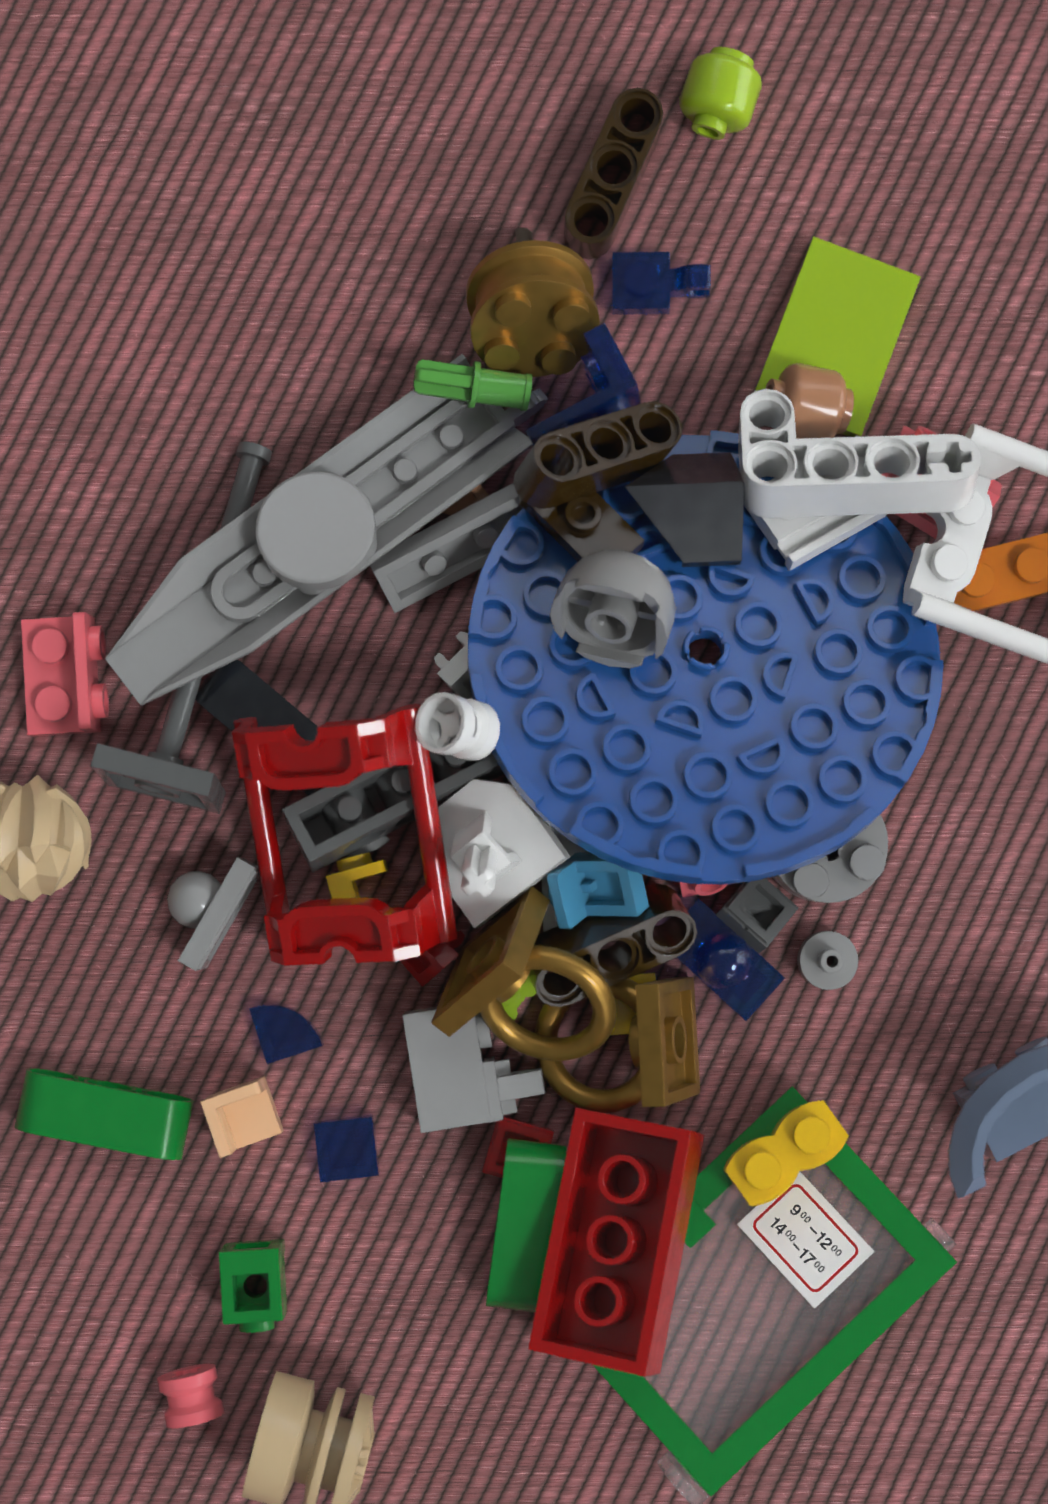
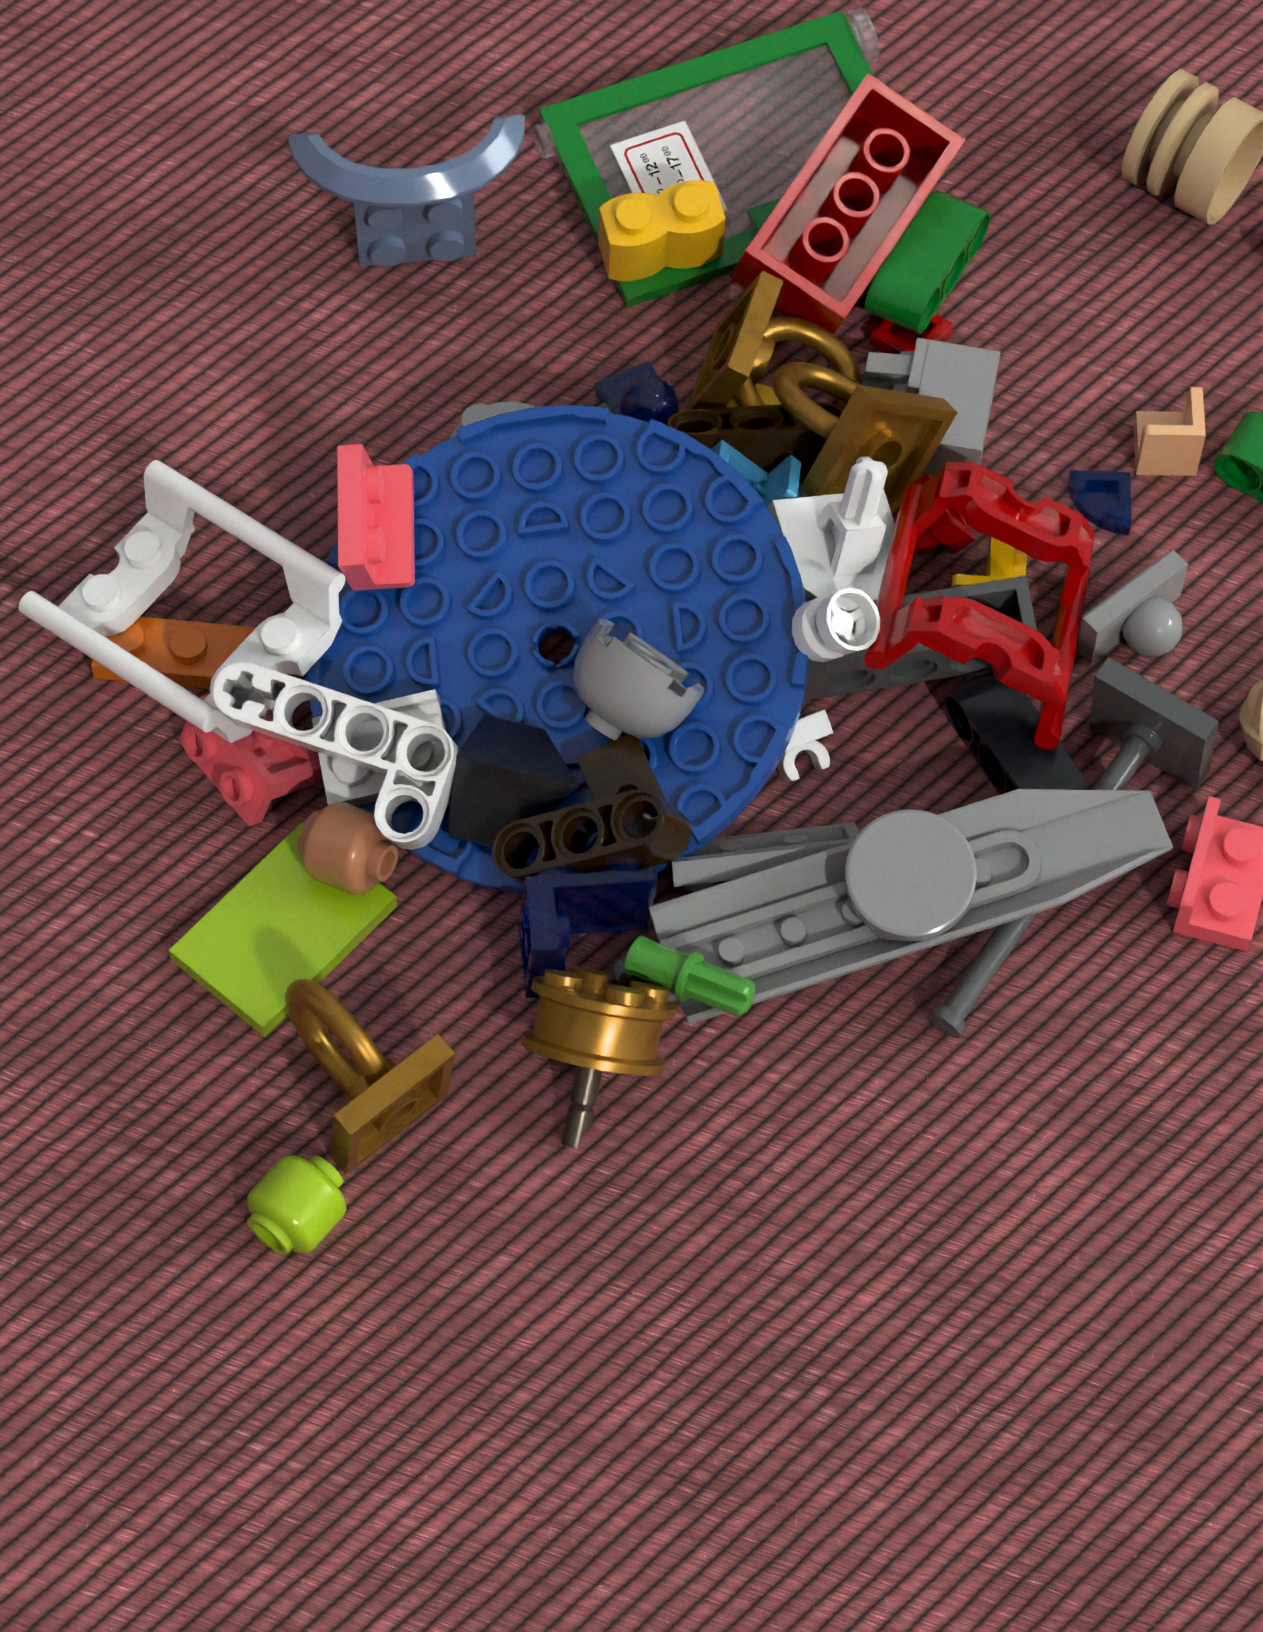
camera: 155 degrees left, 25 degrees down
(239, 1304) = (1204, 300): green brick -> none
(346, 1148) = (1076, 385): clear blue tile -> none
(620, 148) = (456, 1130): dark brown beam -> none
(645, 282) = (473, 1040): clear blue plate -> none
(682, 189) = (382, 1094): none -> pearl gold tile
(813, 960) = (547, 384): light grey tile -> none
(913, 686) = (374, 521): none -> coral bracket

